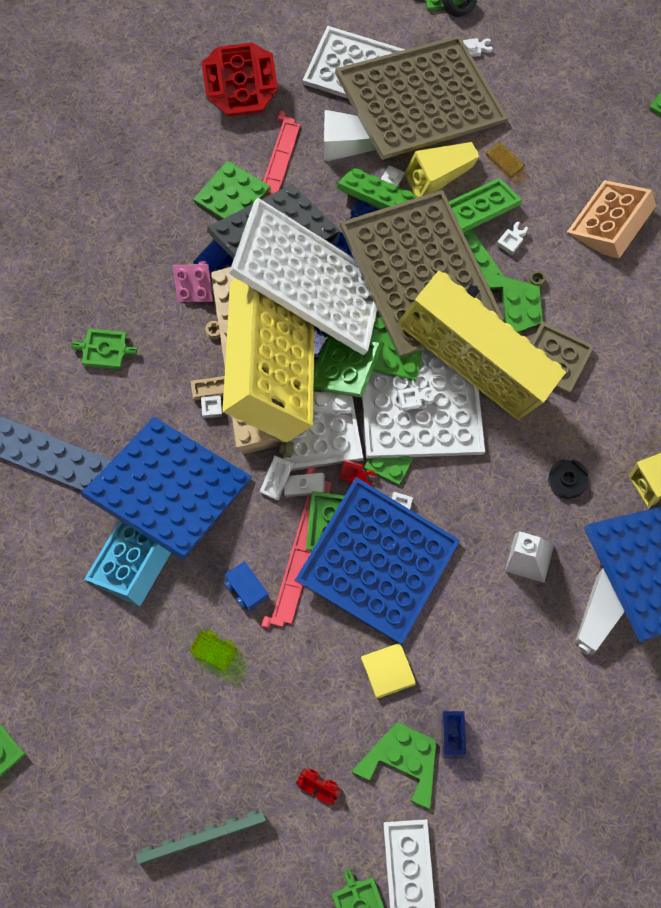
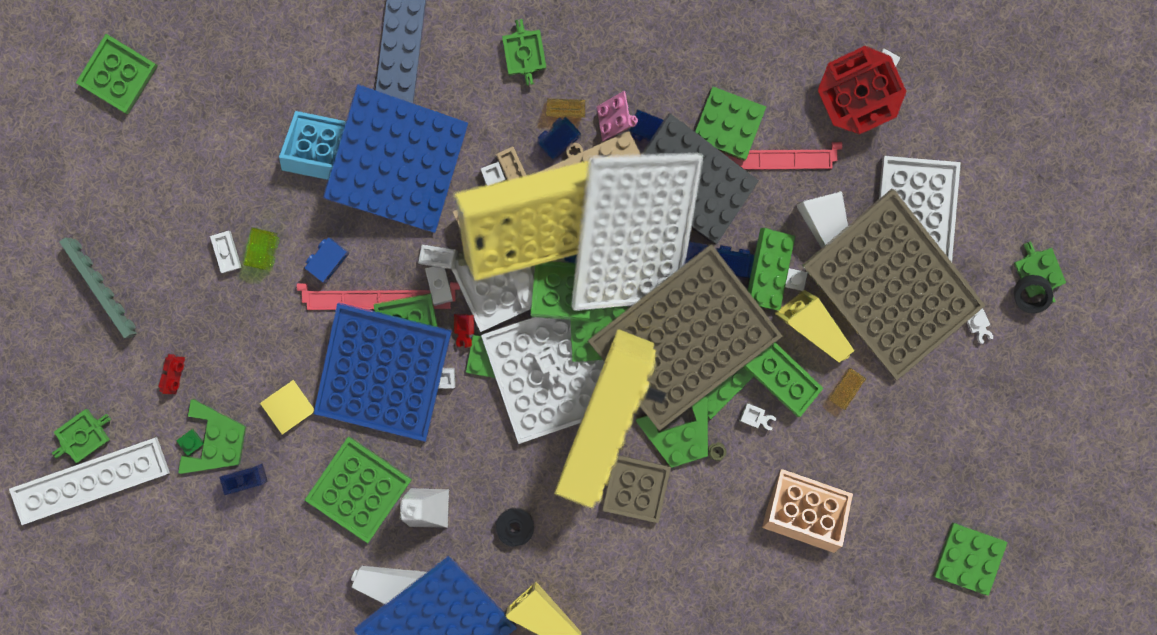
camera: 75 degrees right, 20 degrees up
(170, 325) = (565, 108): none -> clear yellow plate
(197, 339) = (558, 138): none -> clear blue brick
(205, 689) = (225, 252): none -> white plate
(398, 787) = (190, 442): none -> green plate
(493, 621) = (358, 489): none -> bright green plate

